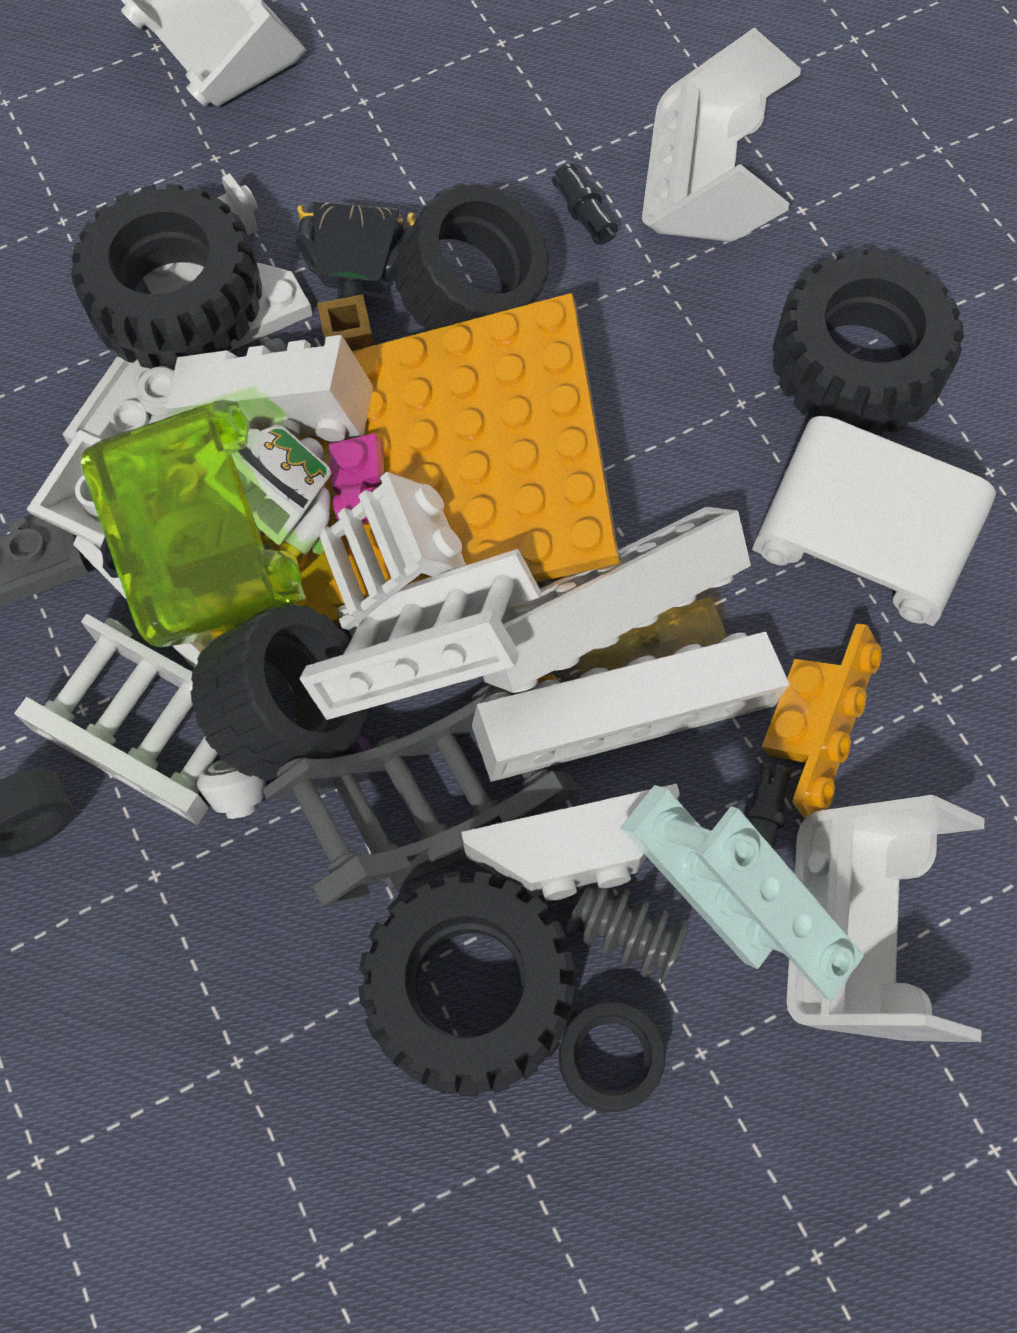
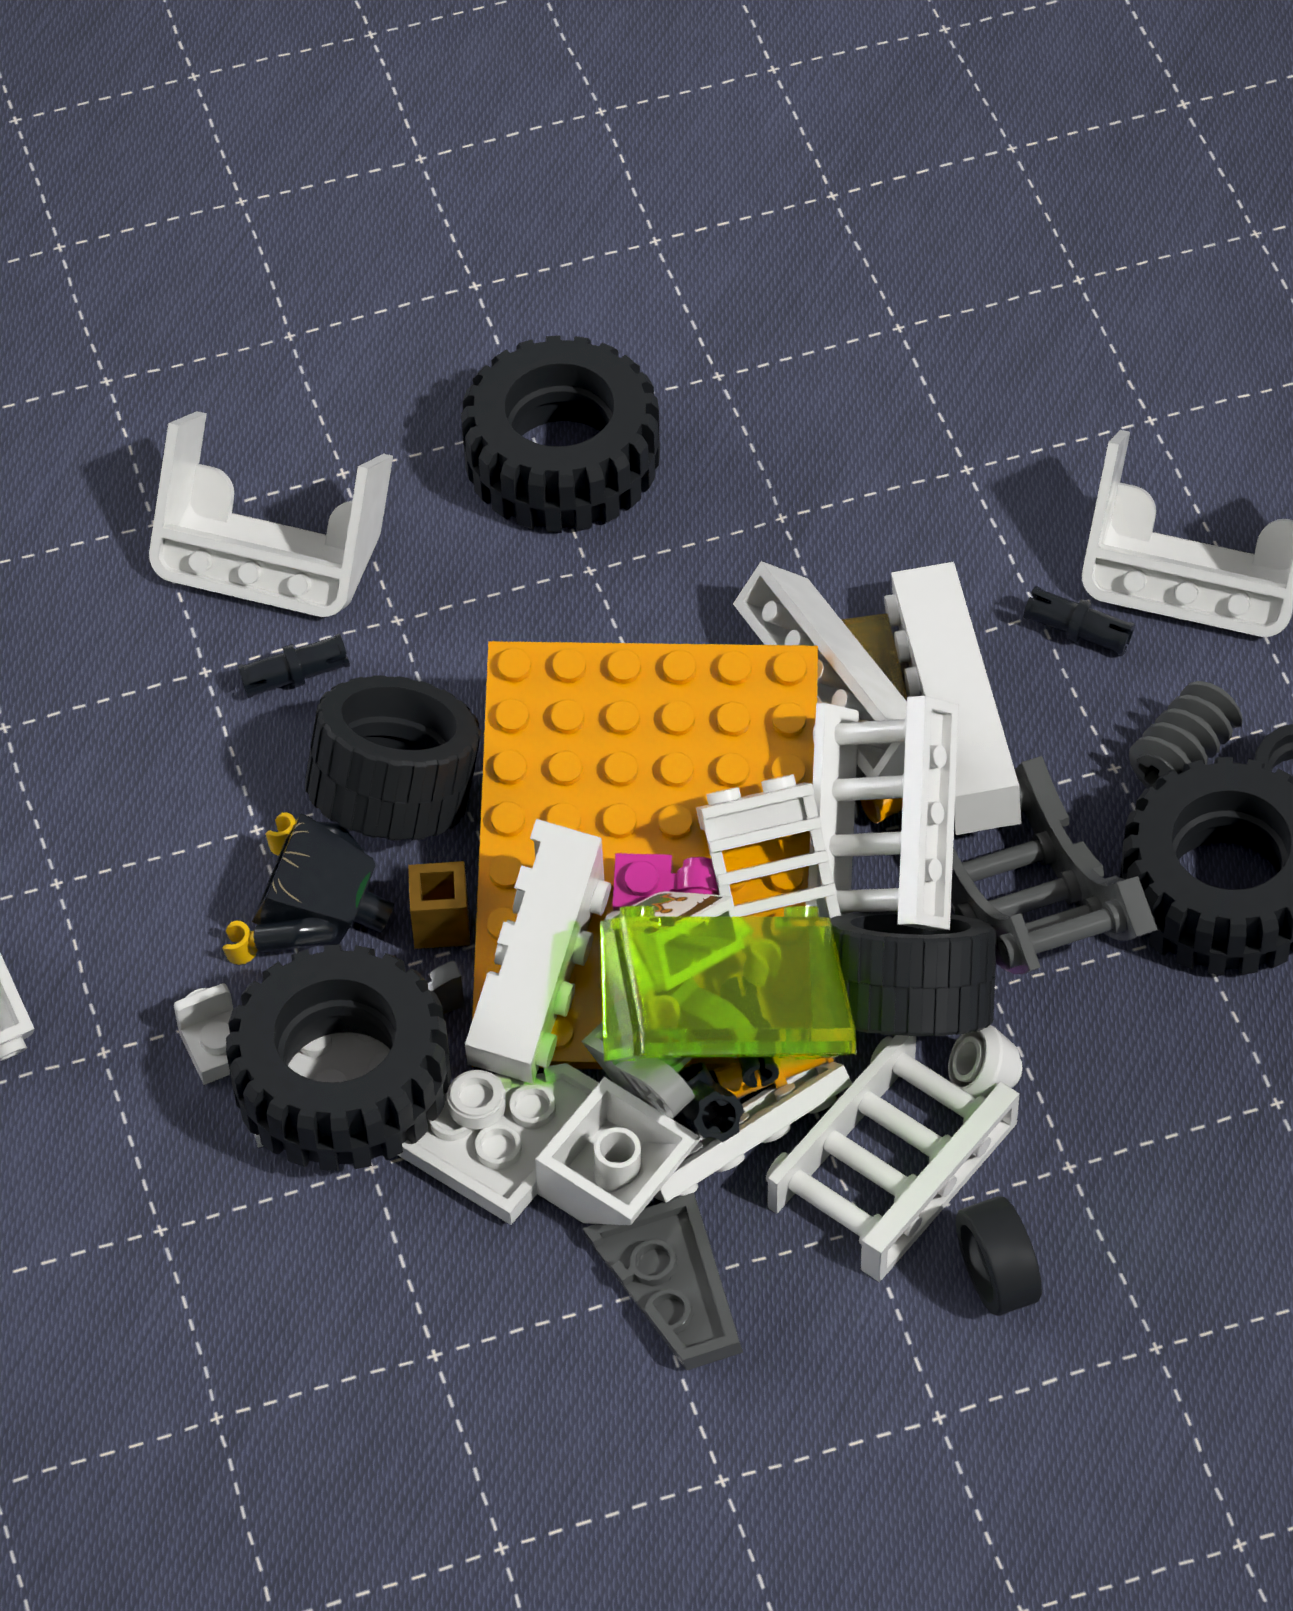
camera: 80 degrees left, 15 degrees down
(562, 847) = (1106, 743): white wedge -> none
(743, 890) = (1183, 643): light aqua fence -> none
(818, 716) = (986, 567): light orange bracket -> none
(877, 514) = (769, 466): white windscreen -> none

